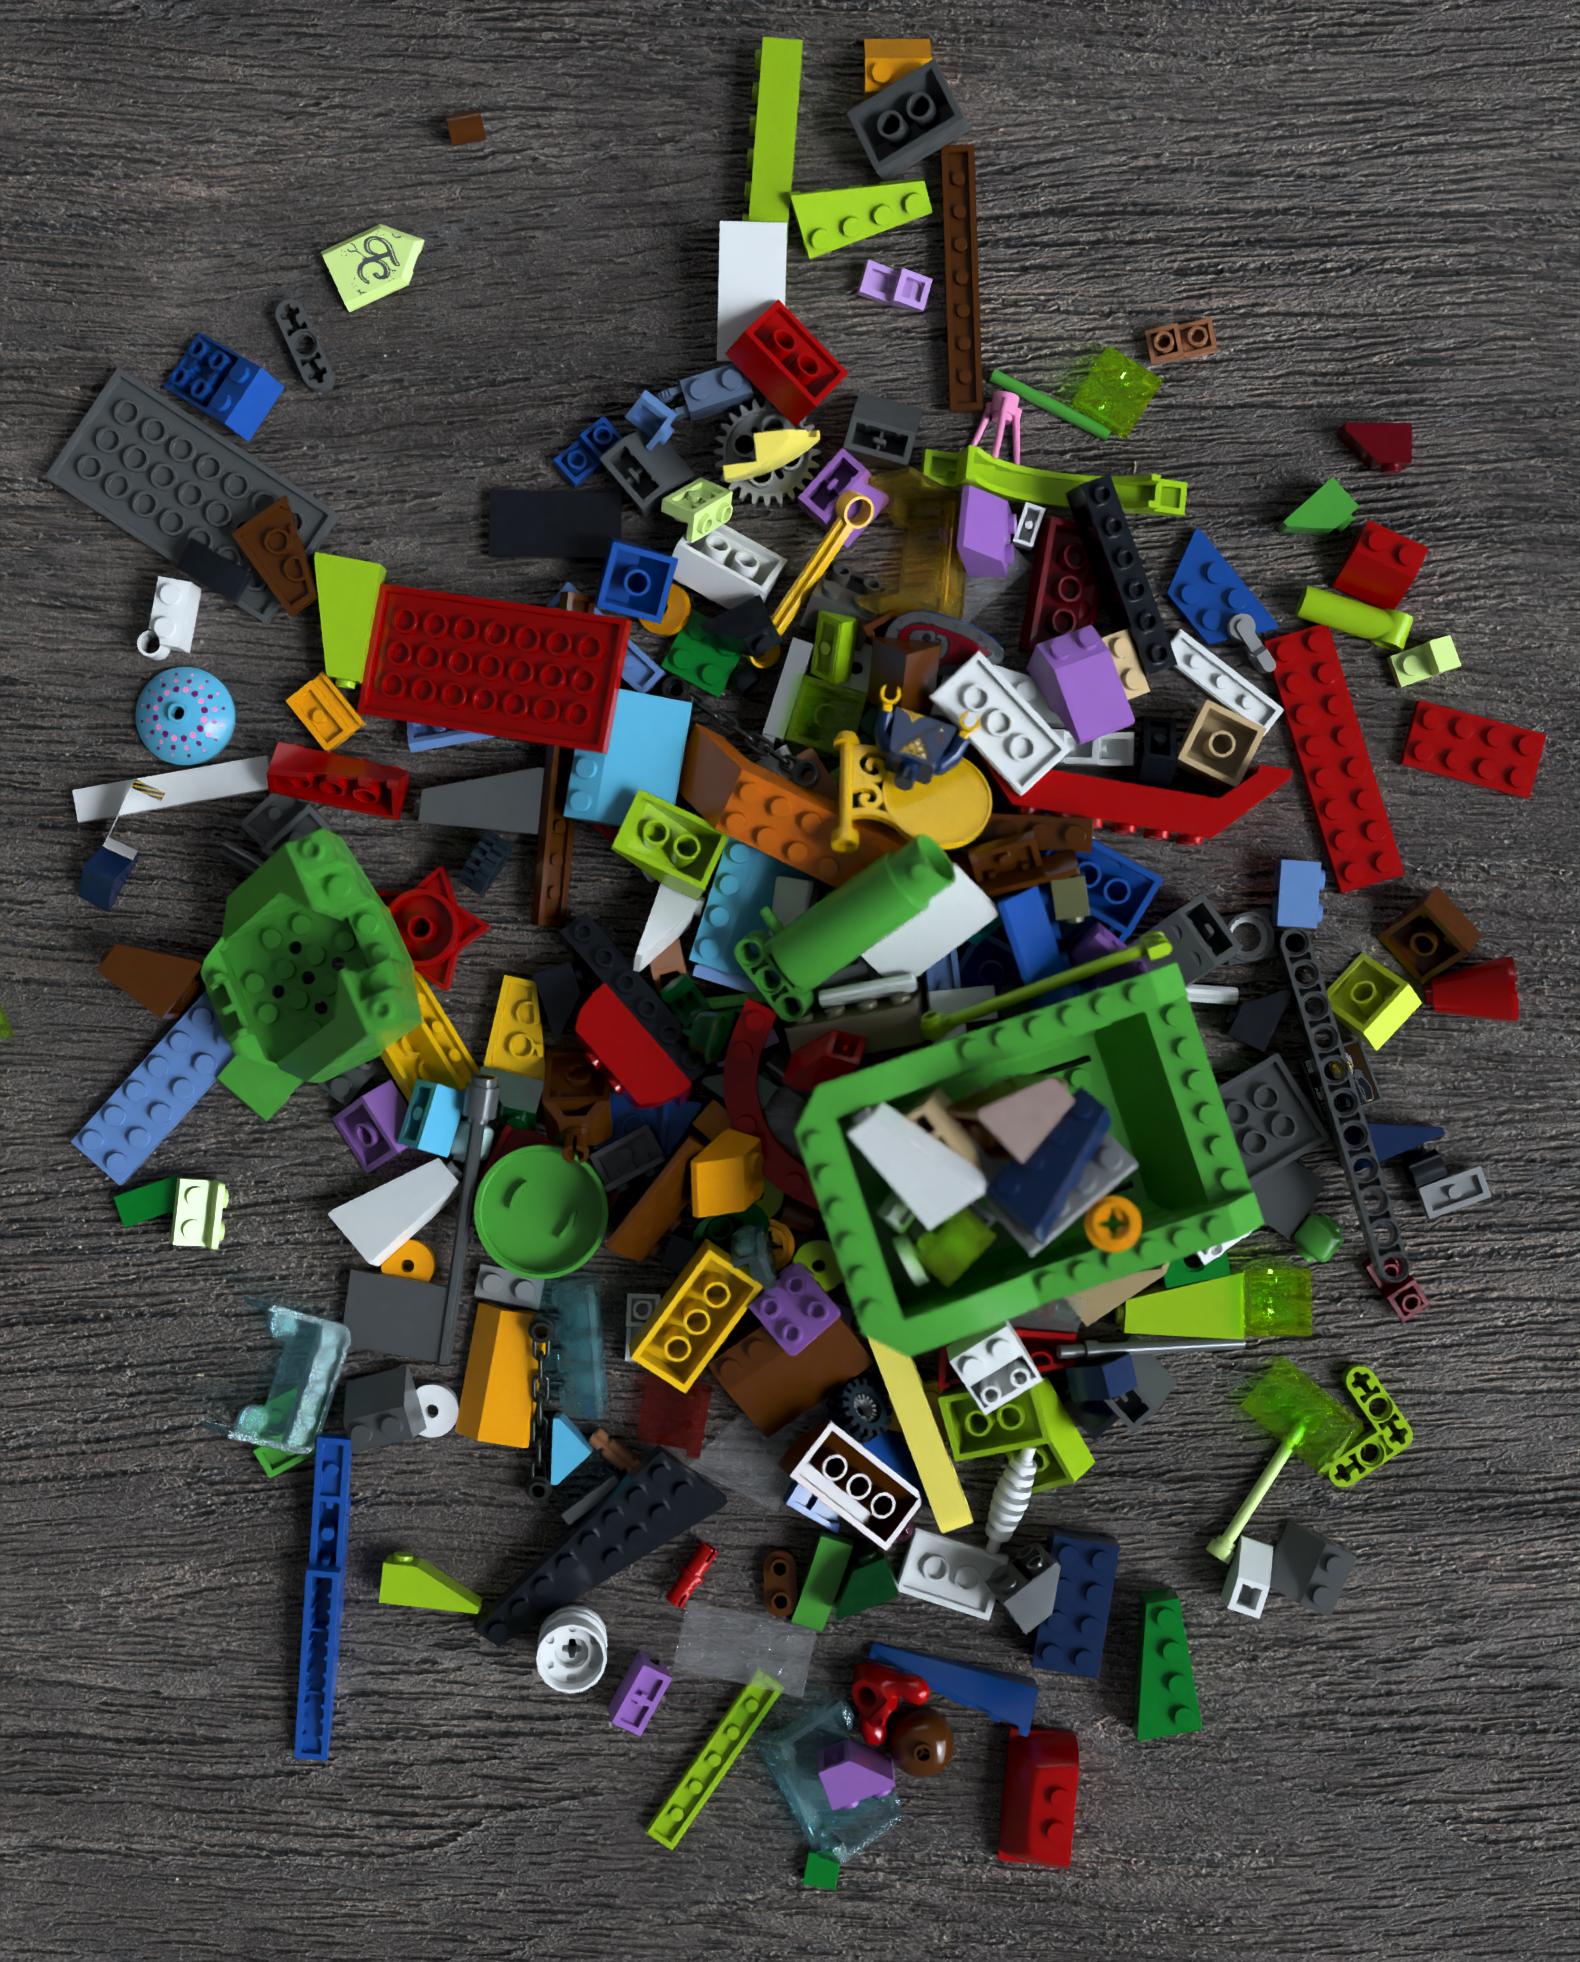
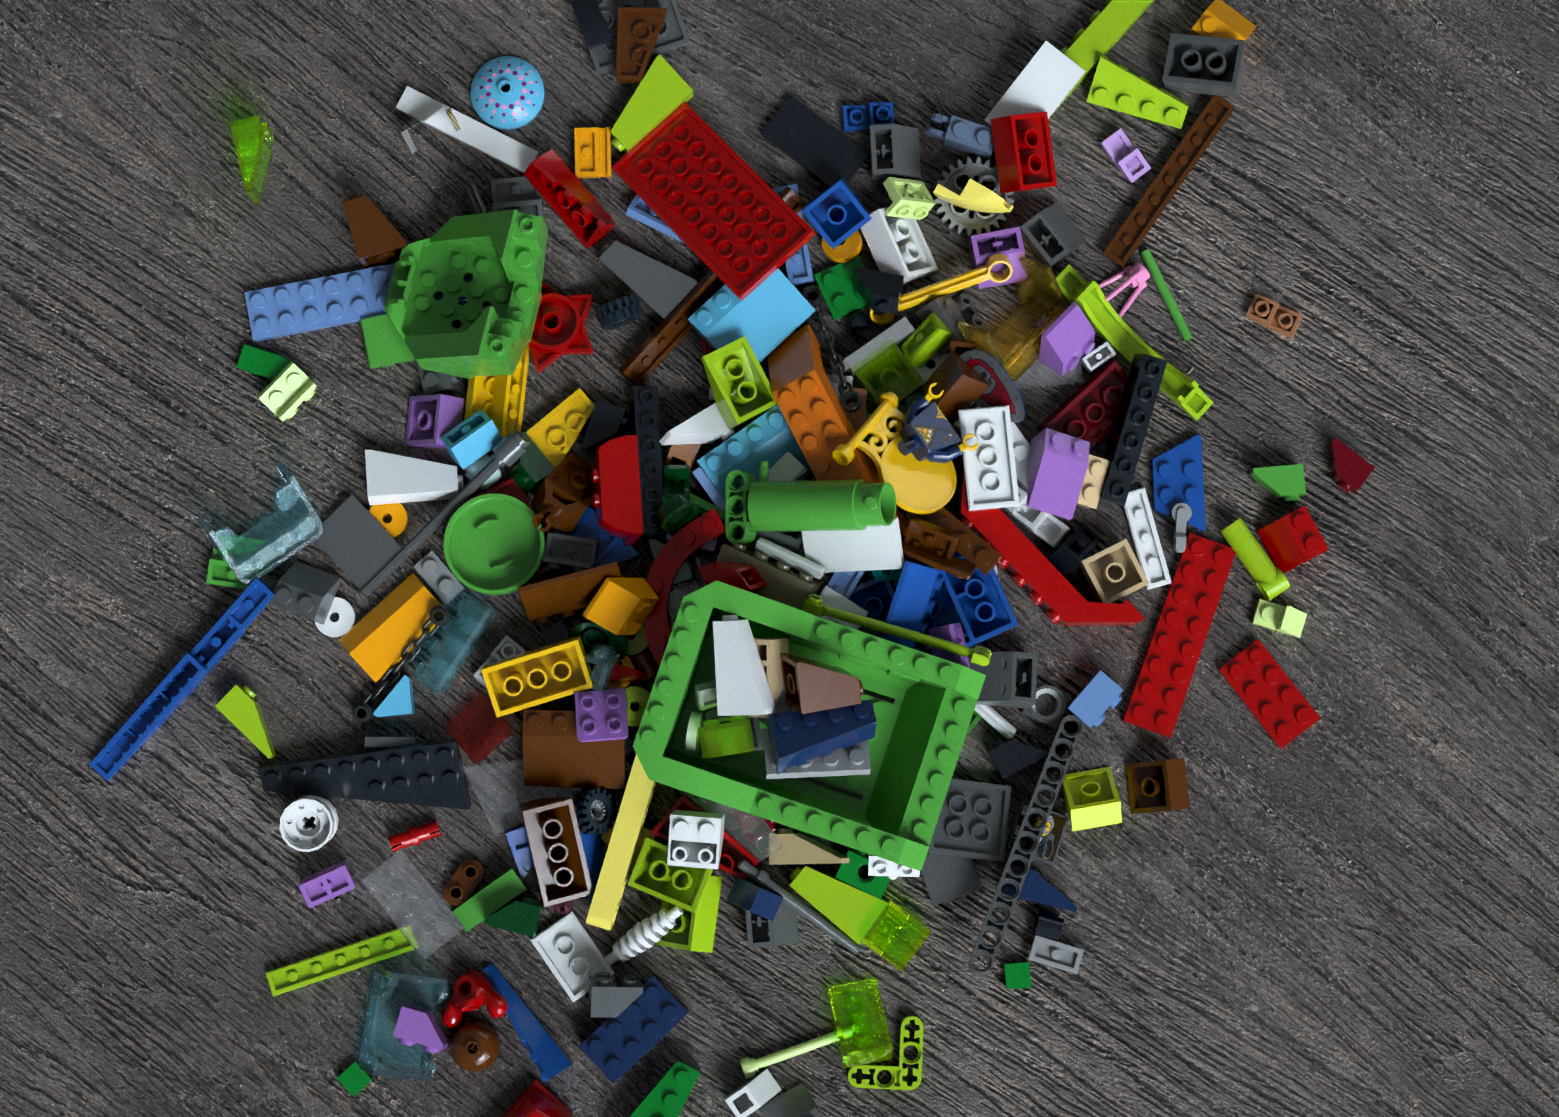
camera: 35 degrees right, 5 degrees down
(104, 877) = (386, 151): dark blue slope -> none
(171, 618) = (544, 29): white hinge -> none
(612, 1451) = (423, 723): nougat axle -> none
(652, 418) = (919, 125): medium blue bracket -> none
(712, 1120) = (637, 568): light orange tile -> none
(783, 1242) = (623, 674): none -> red slope
(1071, 898) = (953, 593): olive brick -> none
(1092, 1415) = (731, 916): black slope -> none
(1116, 392) = (1211, 317): clear neon green slope -> none
(1124, 1212) = (828, 784): light orange gear -> none
(1318, 1238) = (951, 919): bright green head -> none
(1404, 1296) = (978, 988): dark red slope -> none
(1428, 1243) = (1017, 975): none -> green tile
(1477, 991) = (1160, 841): red cone -> none

